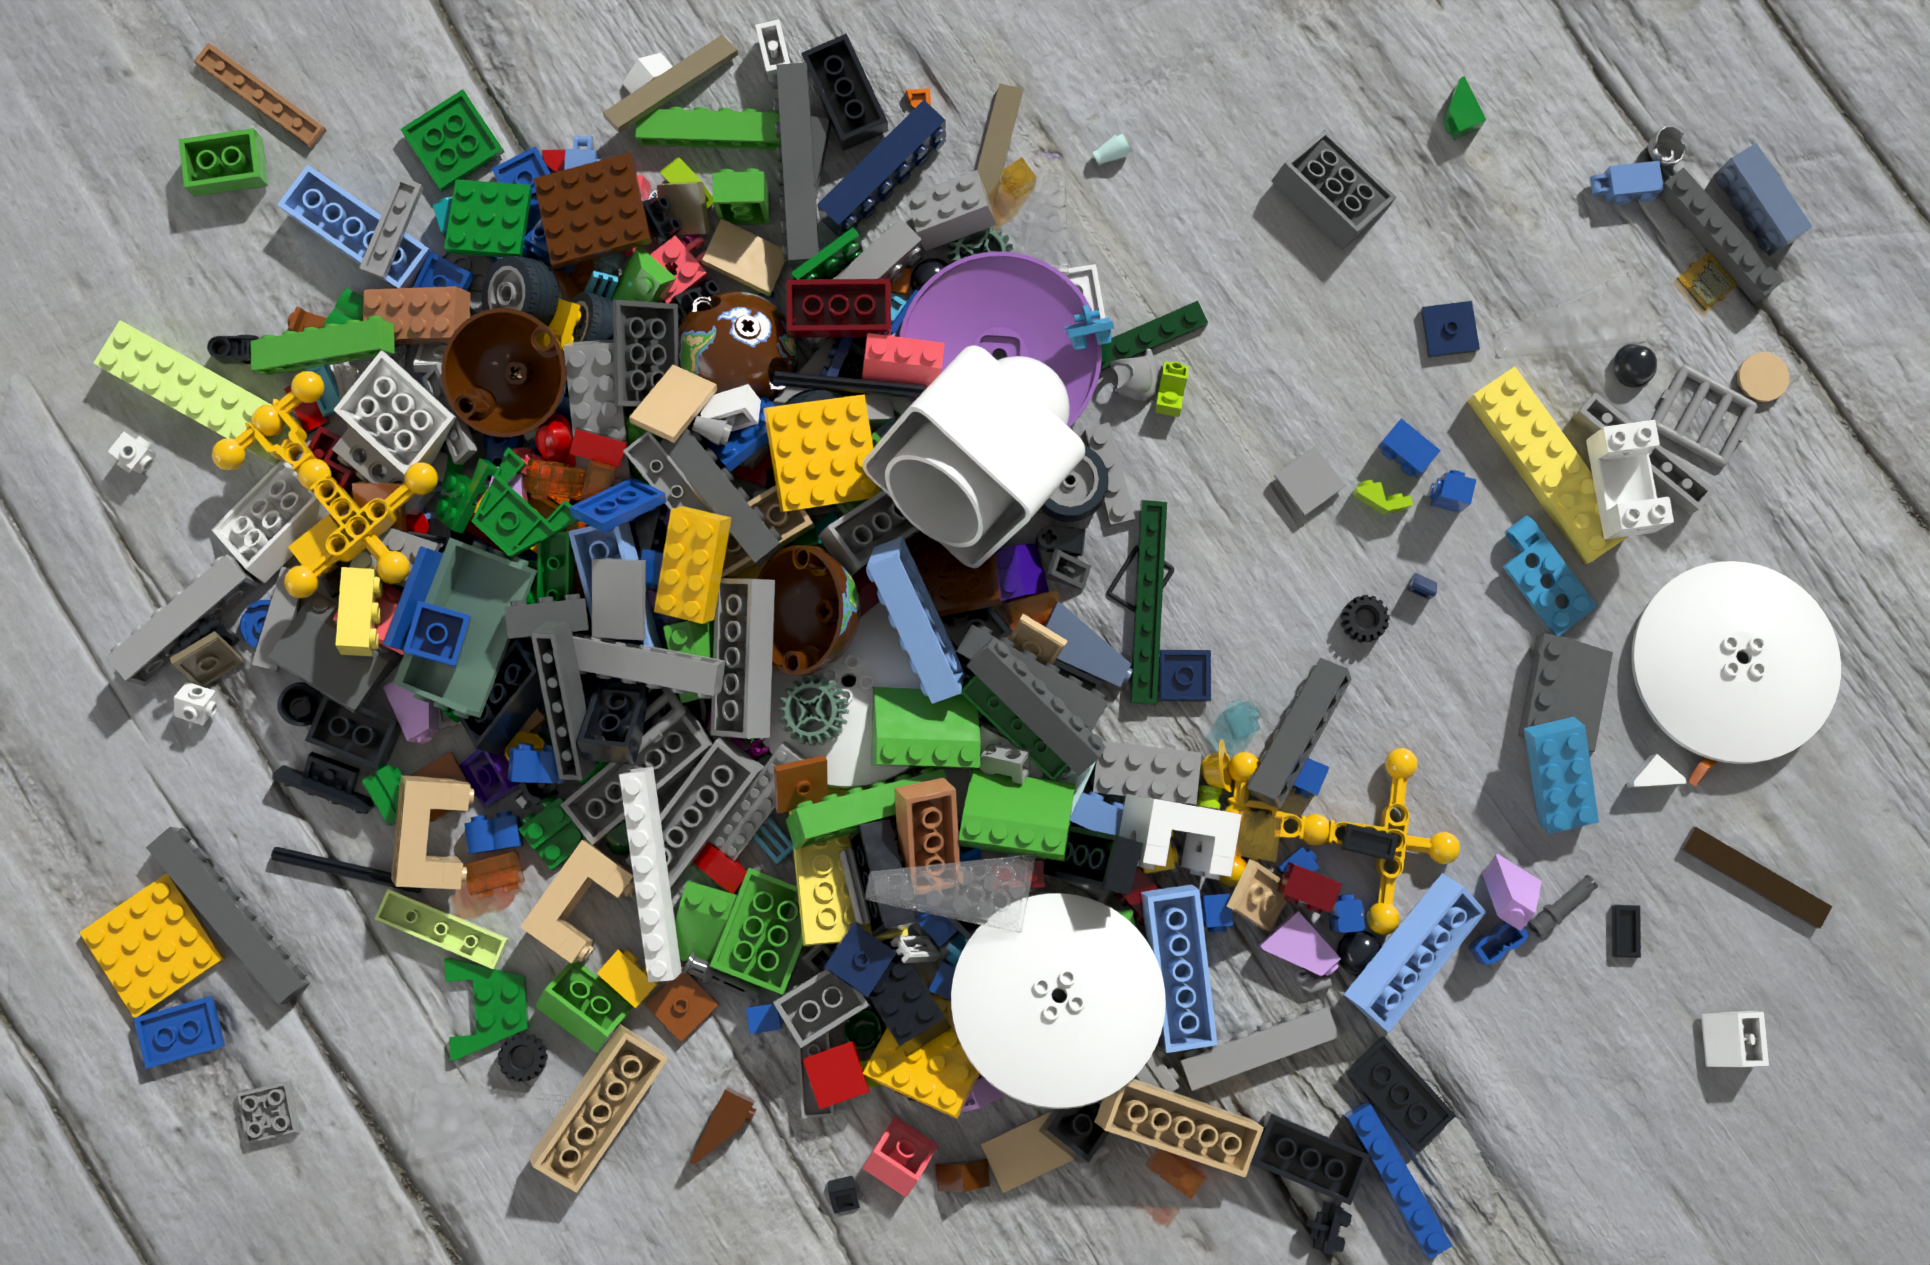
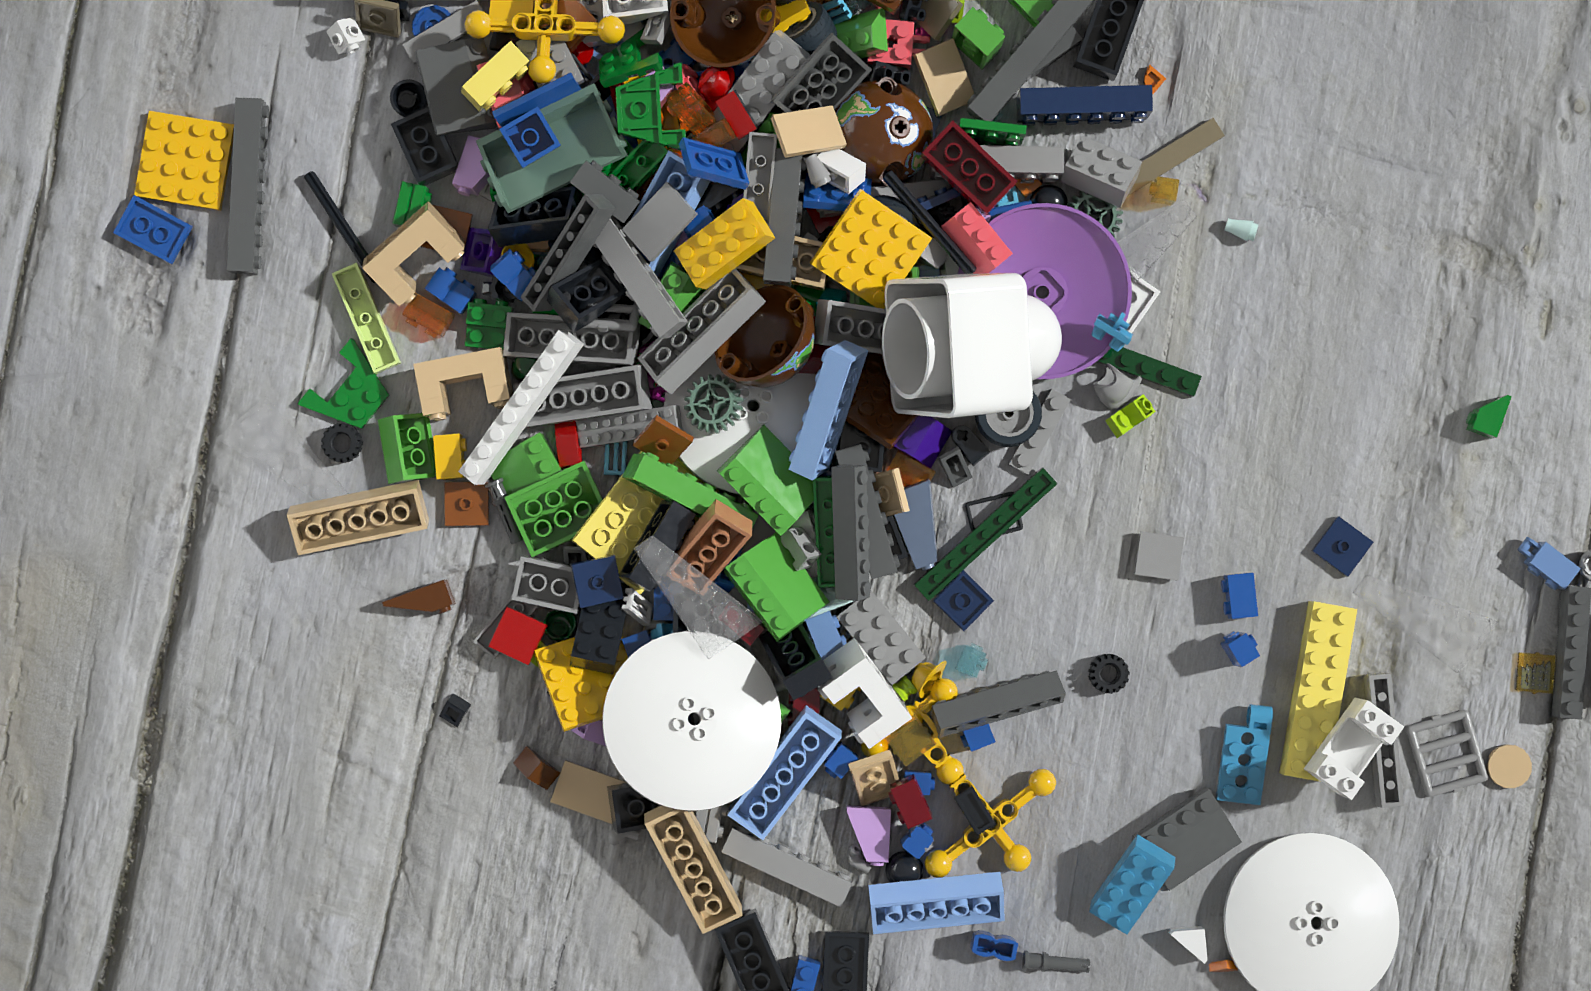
camera: 50 degrees right, 5 degrees up
(268, 1112) = (161, 329): light grey tile -> none
(327, 780) = (382, 161): black bracket -> none
(764, 1018) = (507, 559): blue brick -> none
(855, 887) = (636, 534): light grey axle -> none
(900, 1156) = (510, 721): coral slope -> none
(1176, 1172) = (665, 891): clear orange brick -> none
(1333, 188) = (1357, 387): dark grey slope -> none
(1373, 496) = (1189, 603): lime slope -> none
(1422, 586) = (1165, 688): dark blue slope -> none
(1512, 891) = (1032, 923): lavender slope -> none
(1635, 365) = (1435, 680): black helmet -> none

